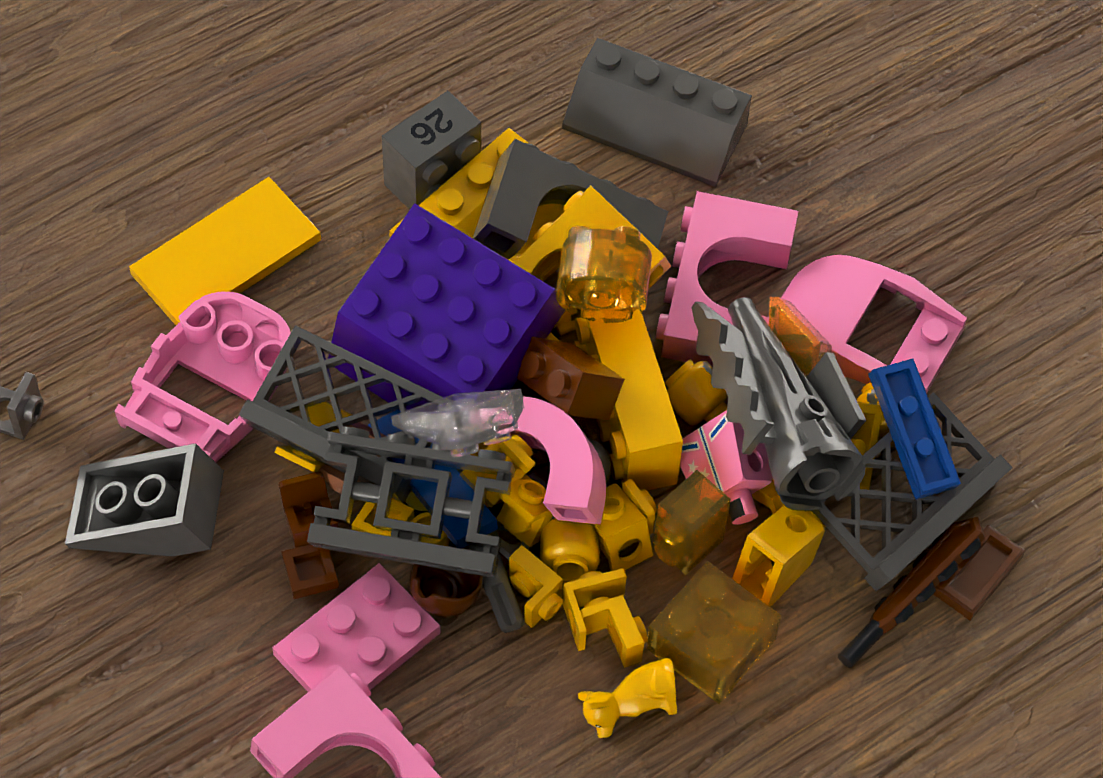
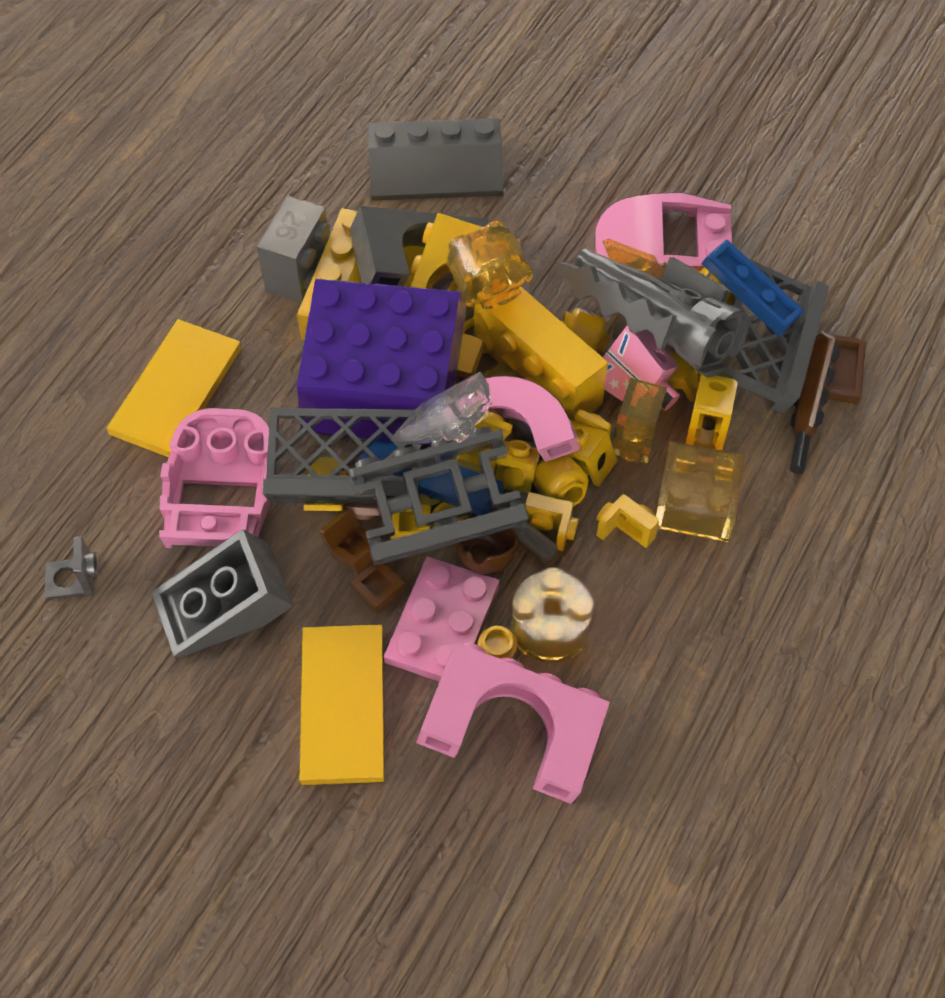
camera: 25 degrees left, 0 degrees up
(204, 676) = (342, 705): none -> yellow tile
(398, 693) = (498, 642): none -> yellow plate
(465, 665) = (551, 616): none -> clear yellow brick
(570, 378) = (500, 355): reddish brown brick -> none
(585, 589) = (589, 505): yellow bracket -> none
(642, 690) = (674, 558): yellow animal -> none
(718, 232) = (540, 215): bright pink arch -> none

